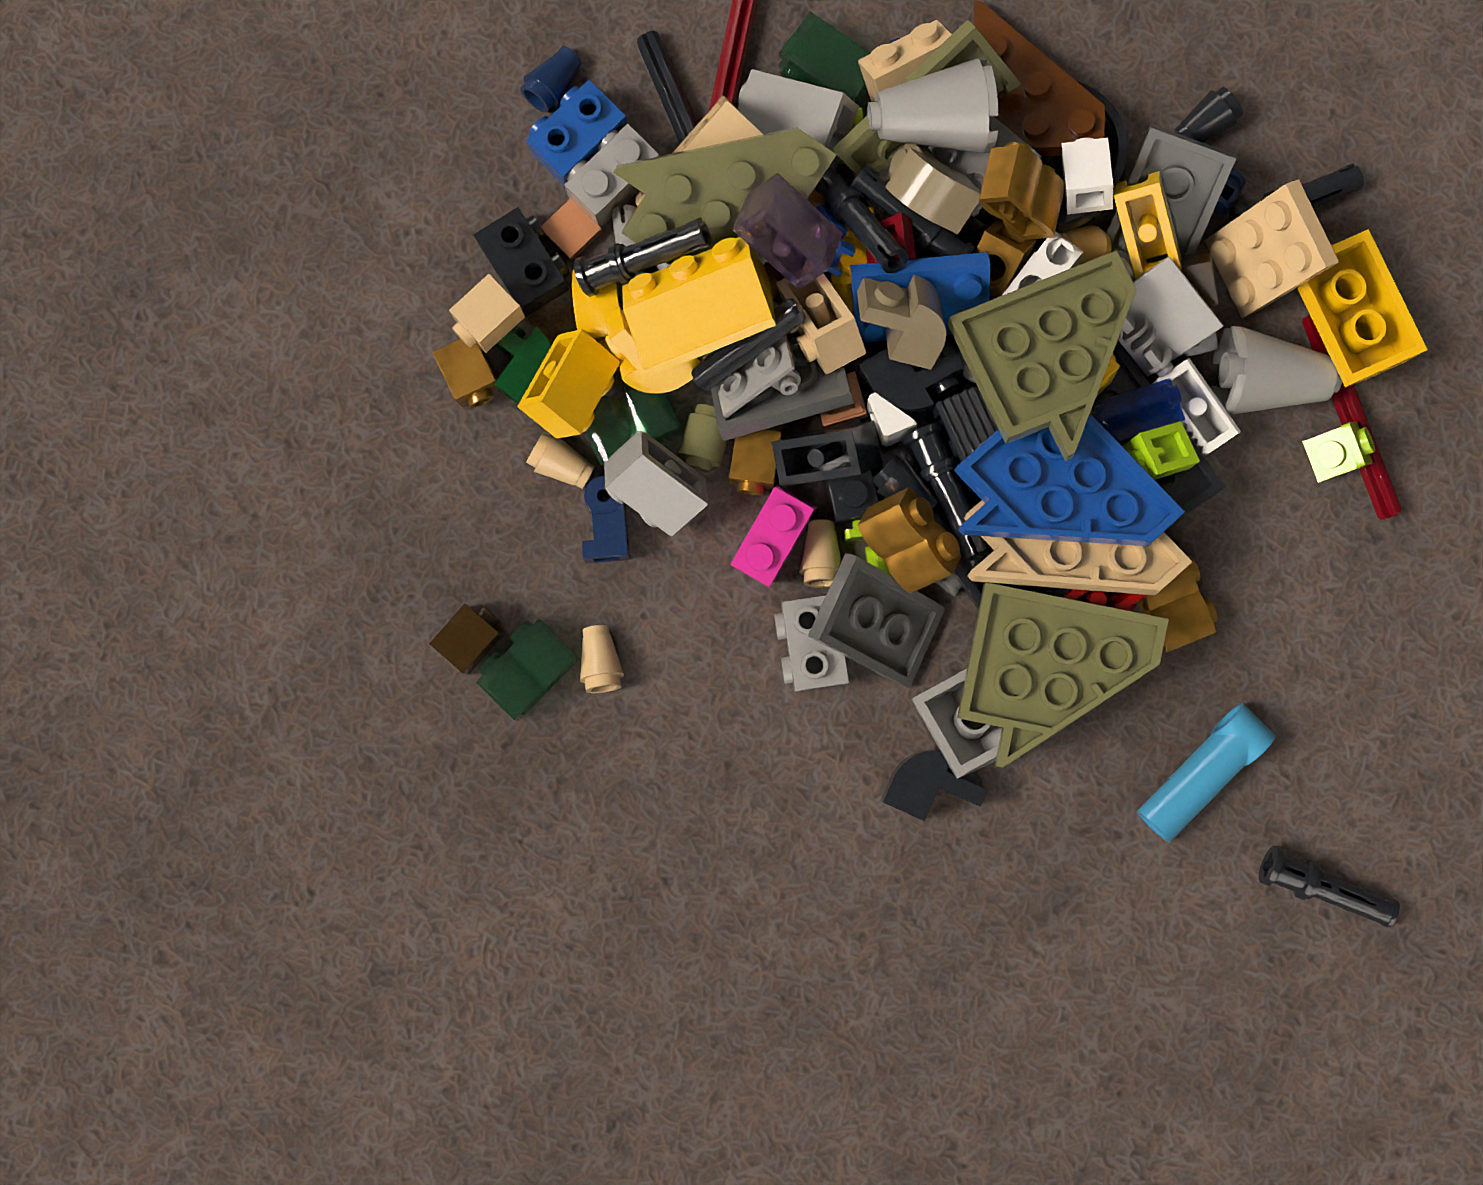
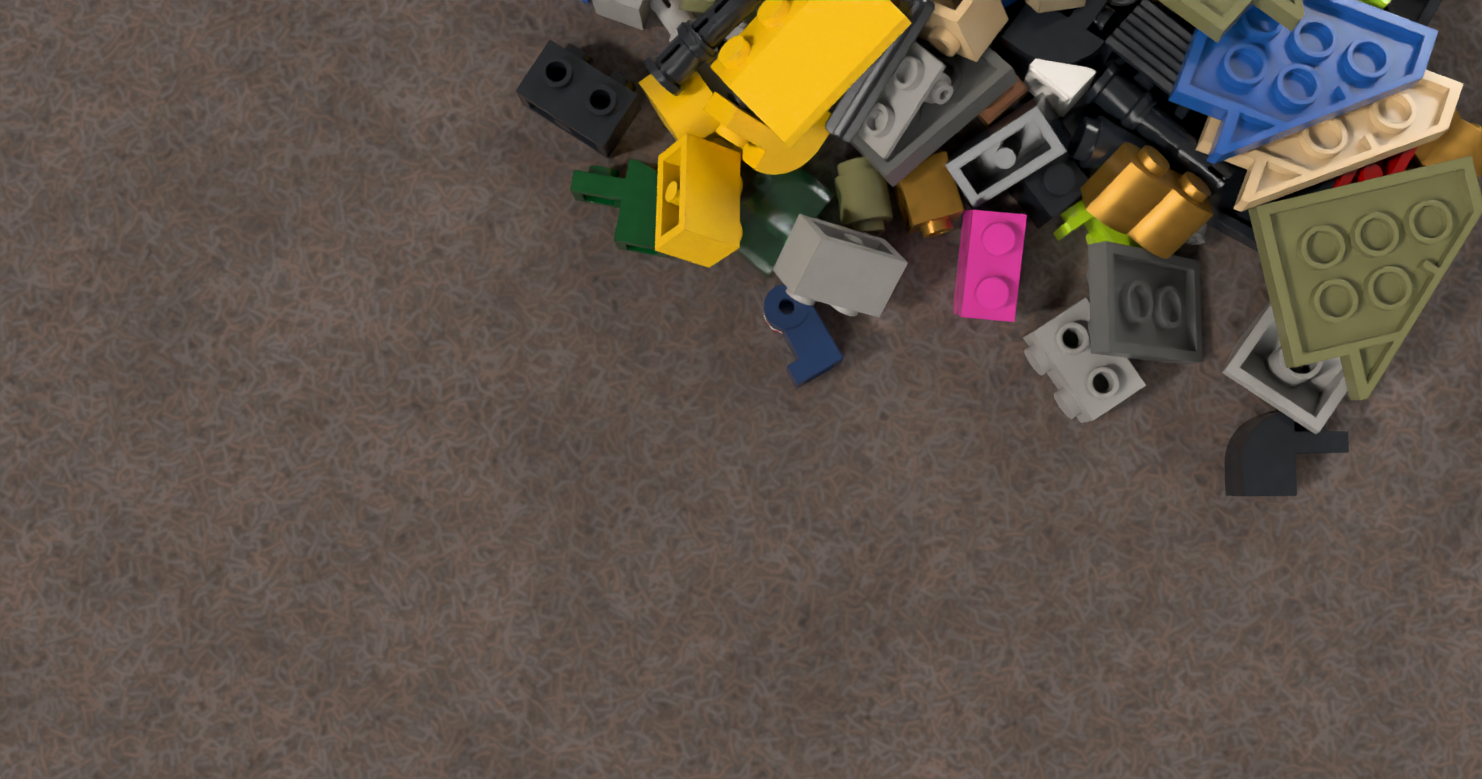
camera: 30 degrees left, 0 degrees up
(466, 373) = (576, 241): pearl gold brick -> none
(468, 637) = (711, 526): dark brown brick -> none
(485, 314) = (572, 166): tan brick -> none
(527, 669) = (791, 530): clear green brick -> none
(559, 461) = (719, 292): tan cone -> none
(571, 229) = (615, 42): nougat tile -> none
(599, 661) = (863, 485): tan cone -> none
(820, 554) = (1046, 267): tan cone -> none

